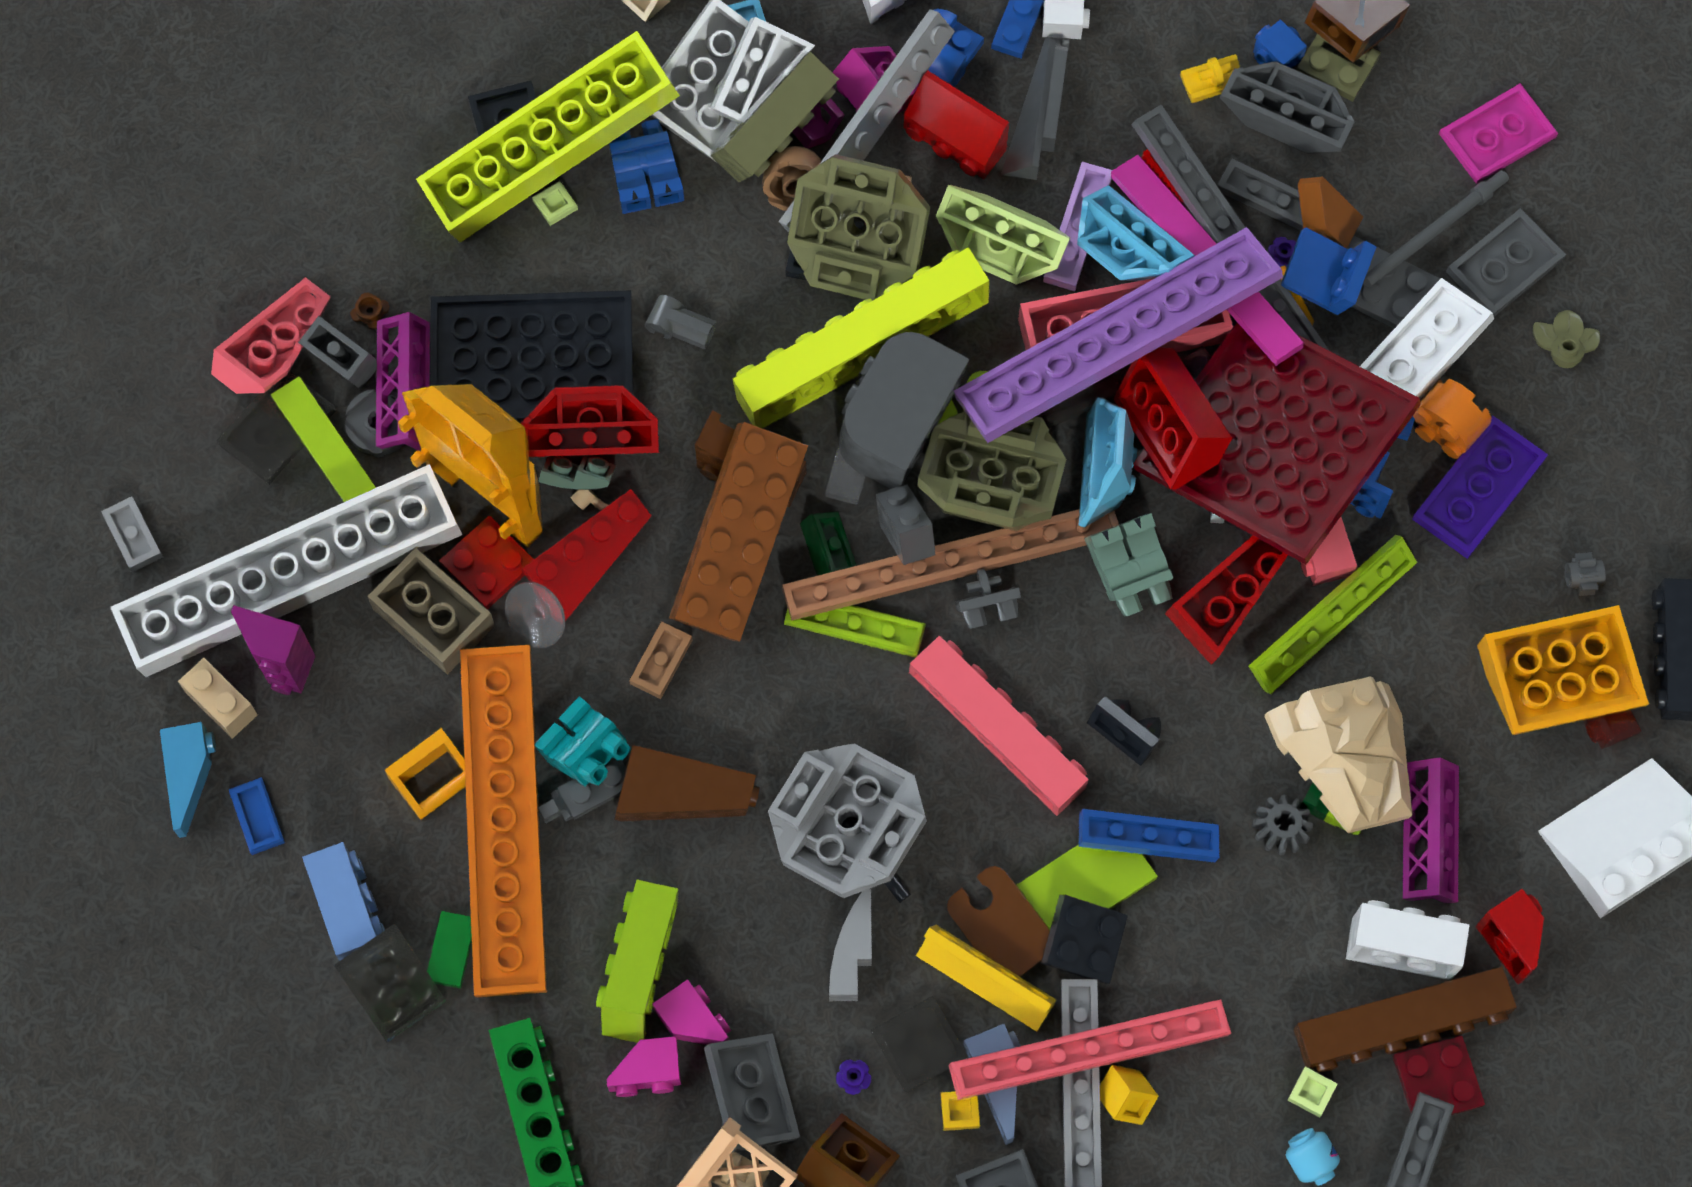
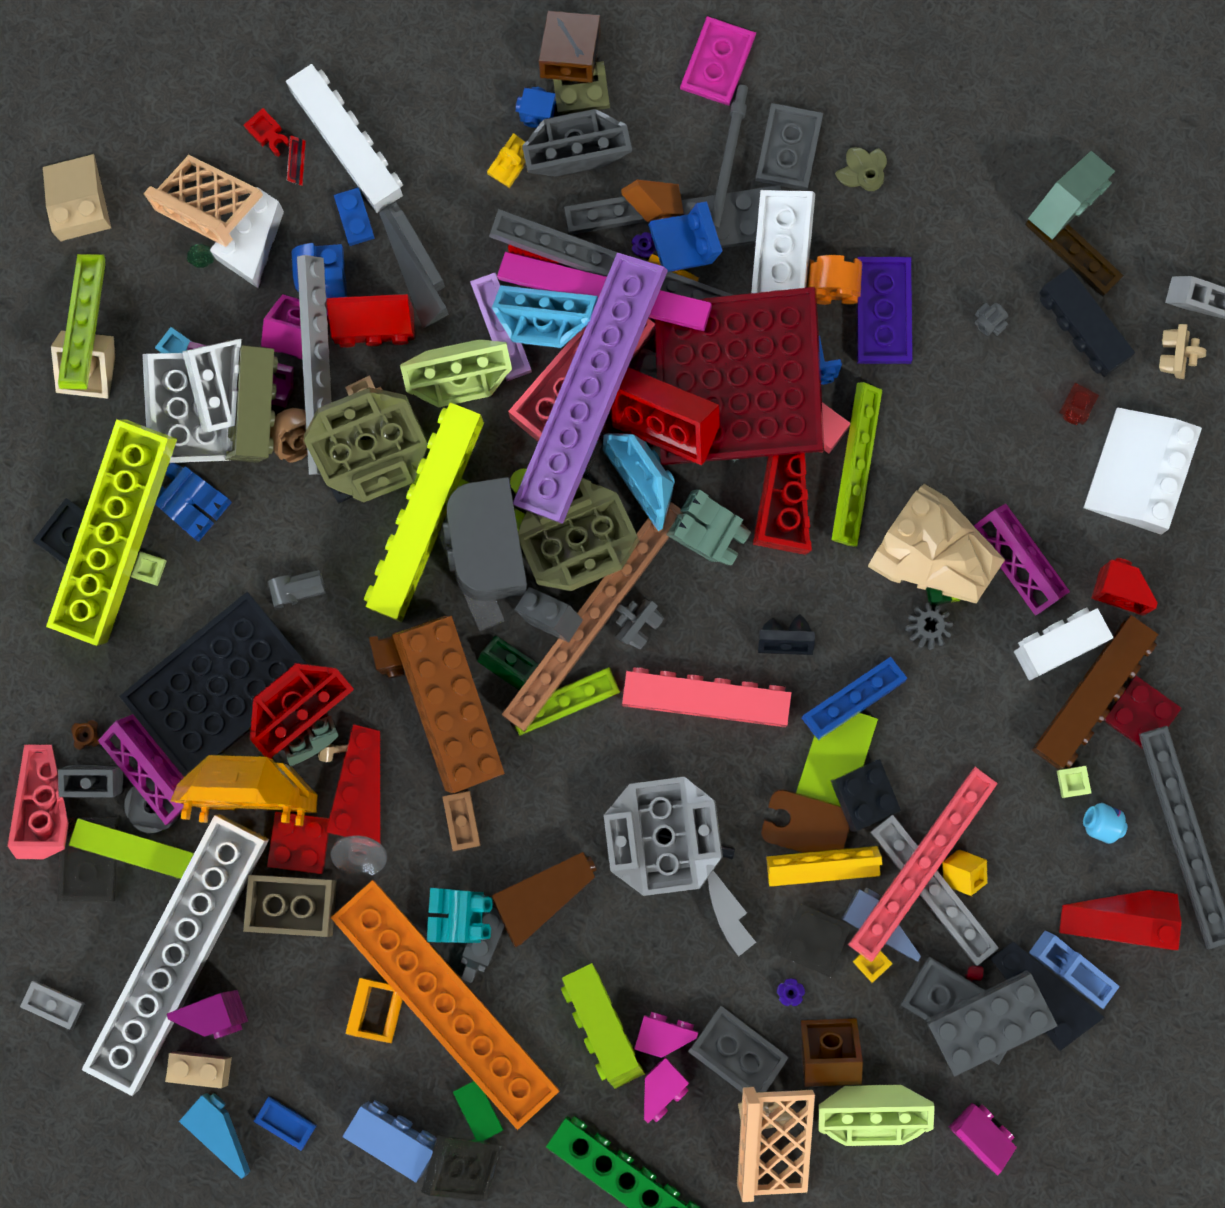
camera: 30 degrees left, 10 degrees up
(1563, 670) = (1027, 395): light orange slope -> none

